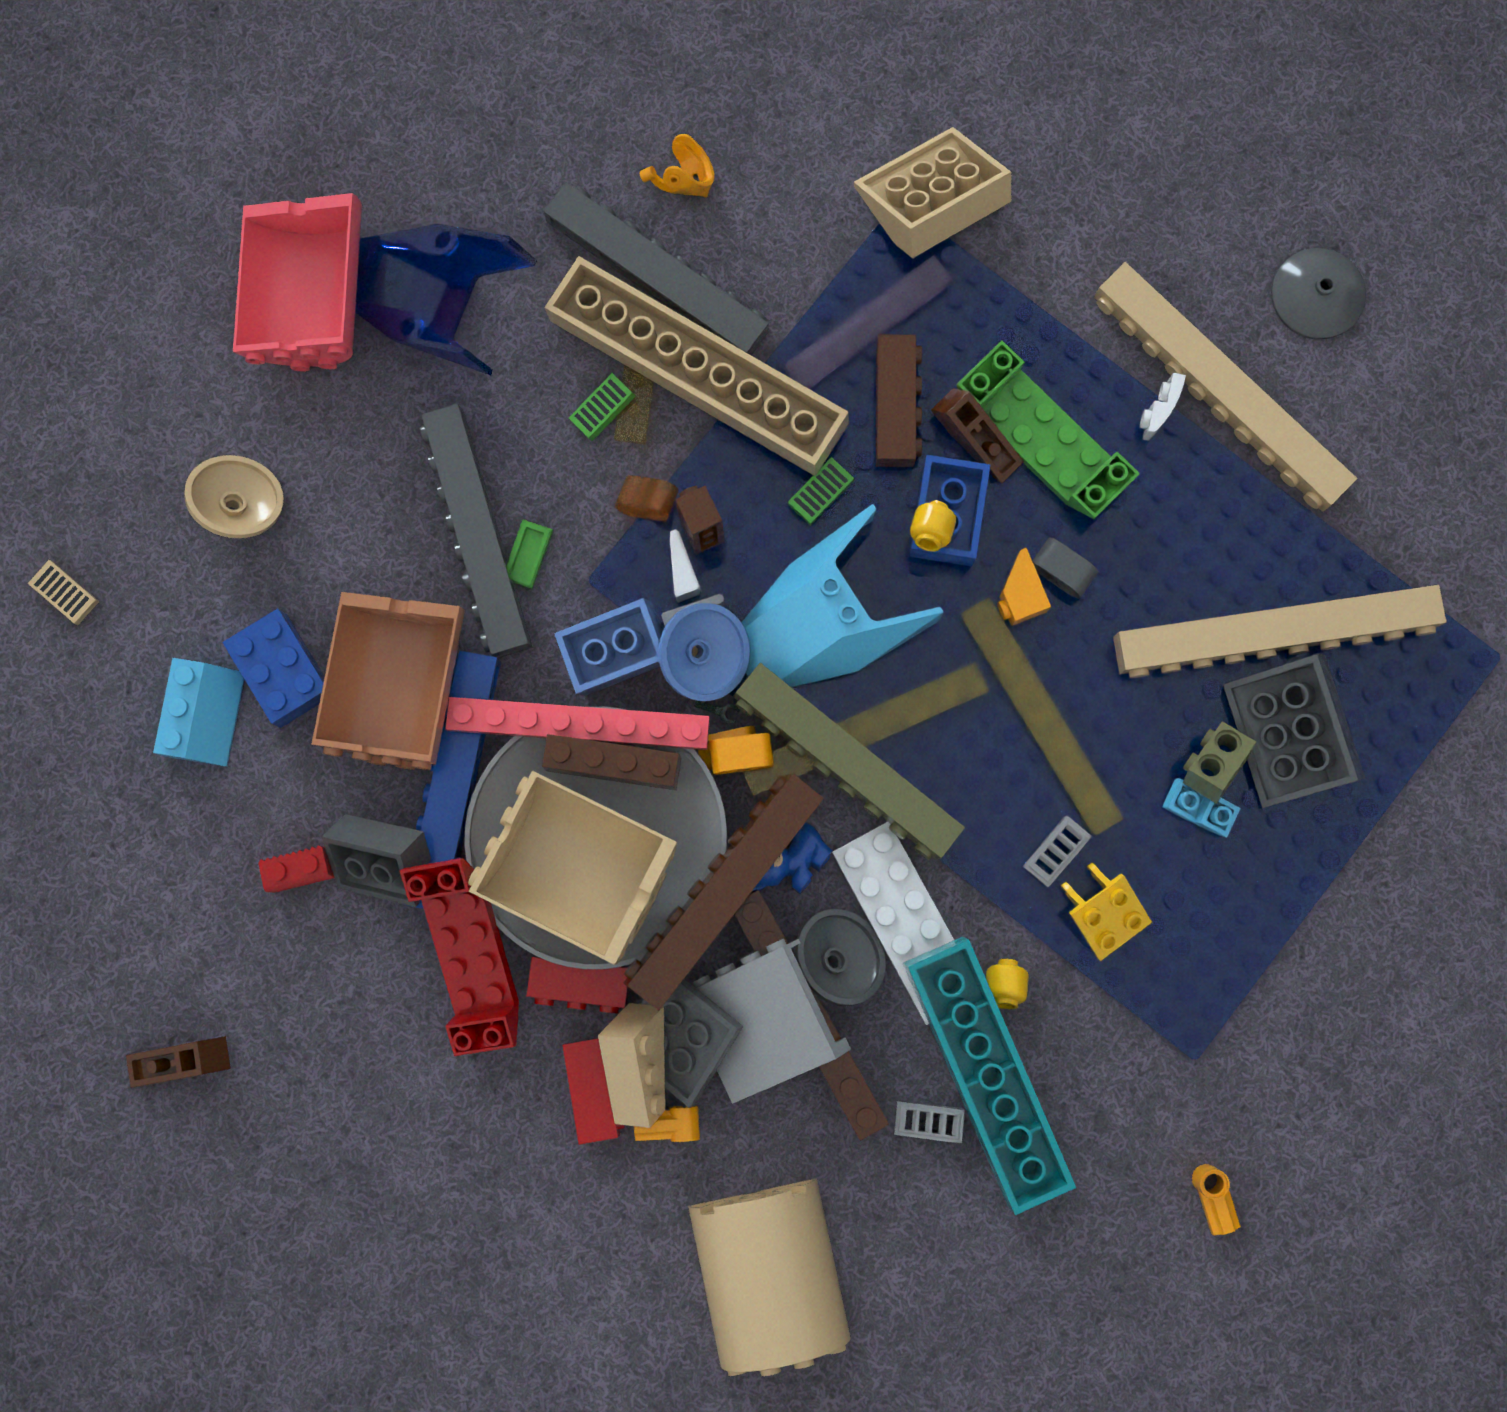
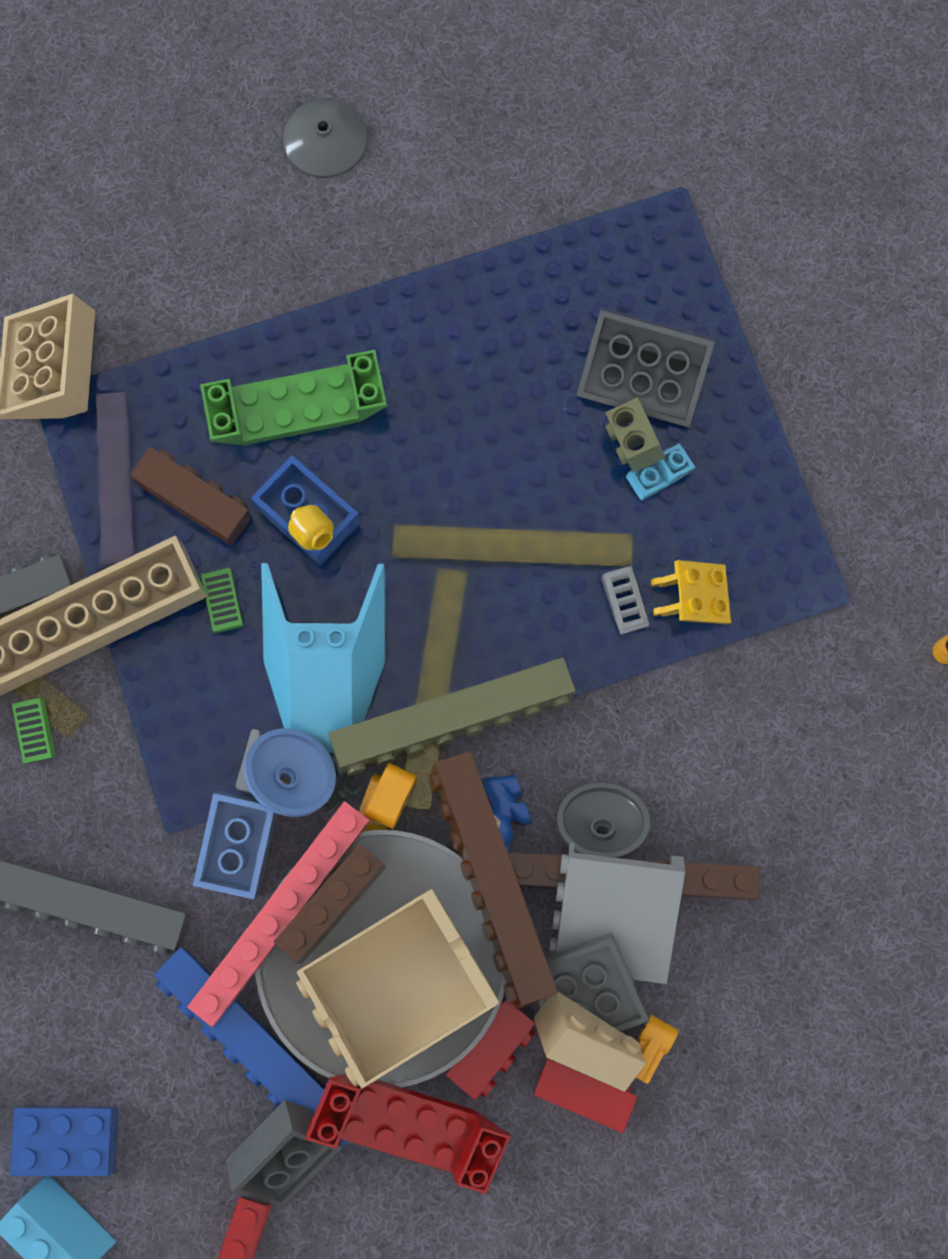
camera: 60 degrees left, 5 degrees down
(388, 680) = (139, 1050): nougat cylinder -> none
(528, 553) = (111, 867): bright green tile -> none
(646, 498) = (133, 741): clear orange beam -> none
(684, 578) = (216, 750): white slope -> none
(700, 519) = (180, 706): reddish brown brick -> none
(770, 1278) = (824, 1044): tan cylinder -> none
(893, 899) = (608, 753): white plate -> none
(941, 1135) = (790, 813): light grey slope -> none
(977, 433) = (258, 451): reddish brown slope -> none
(989, 1075) = (767, 763): teal brick -> none
(1008, 983) = (704, 706): yellow head -> none
(1022, 592) = (406, 496): light orange slope -> none
(1064, 567) = (408, 454): dark grey beam -> none
(1159, 411) = (336, 305): white slope -> none
(1224, 388) = (348, 249): tan brick -> none
(1279, 630) = (561, 329): tan brick -> none

